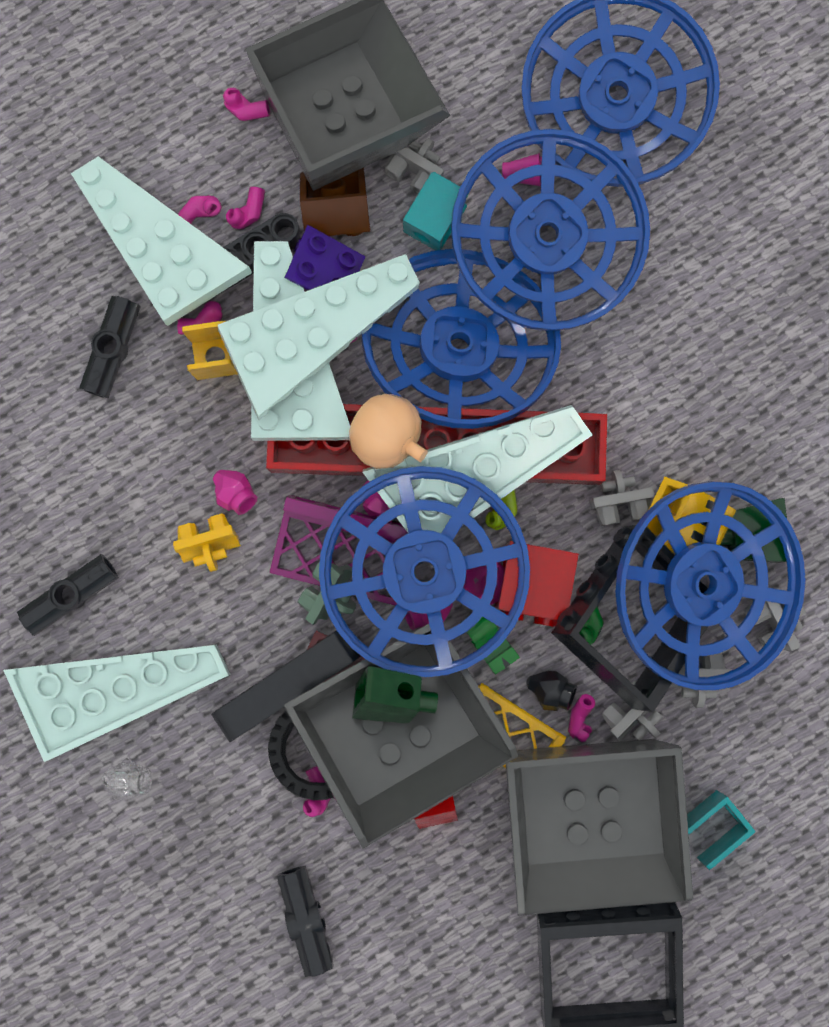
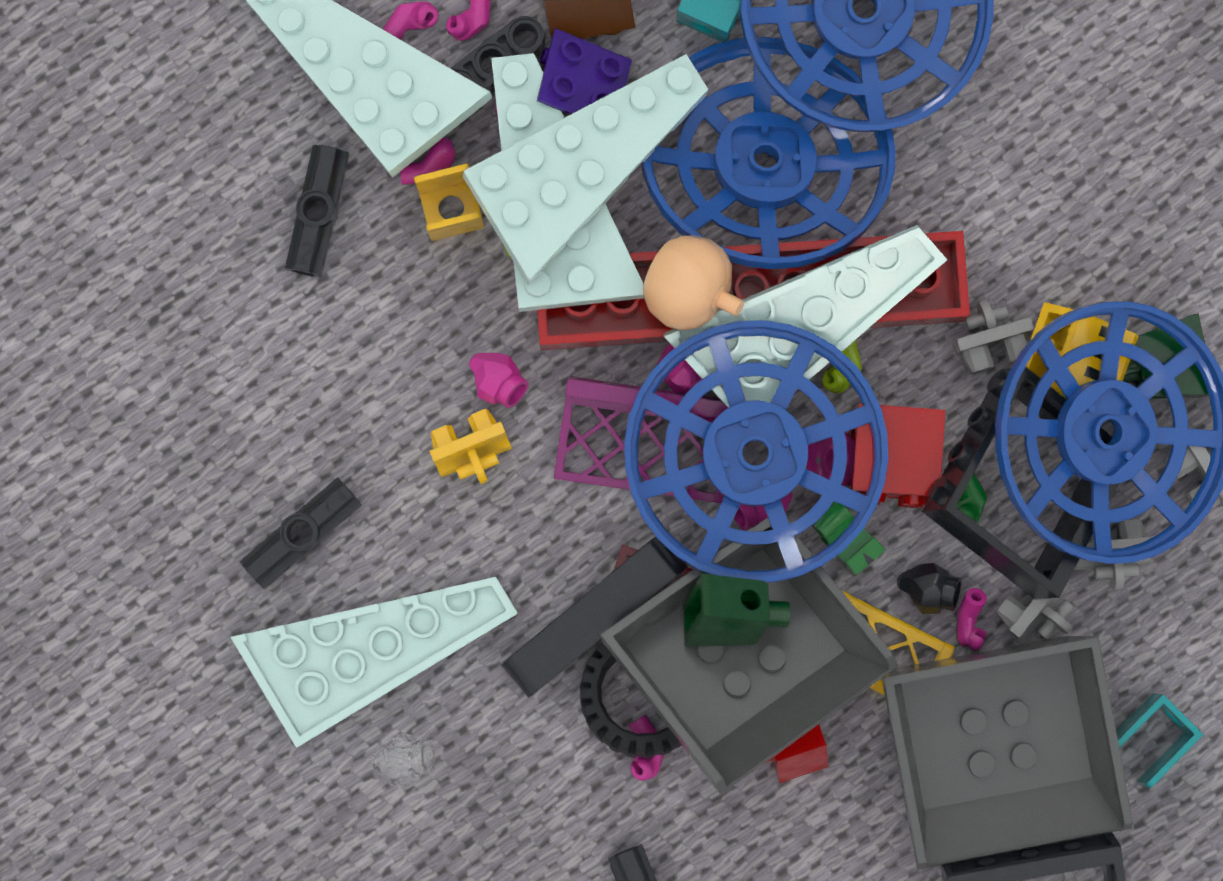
camera: 10 degrees left, 0 degrees up
(312, 599) = (622, 509): sand green hips -> none

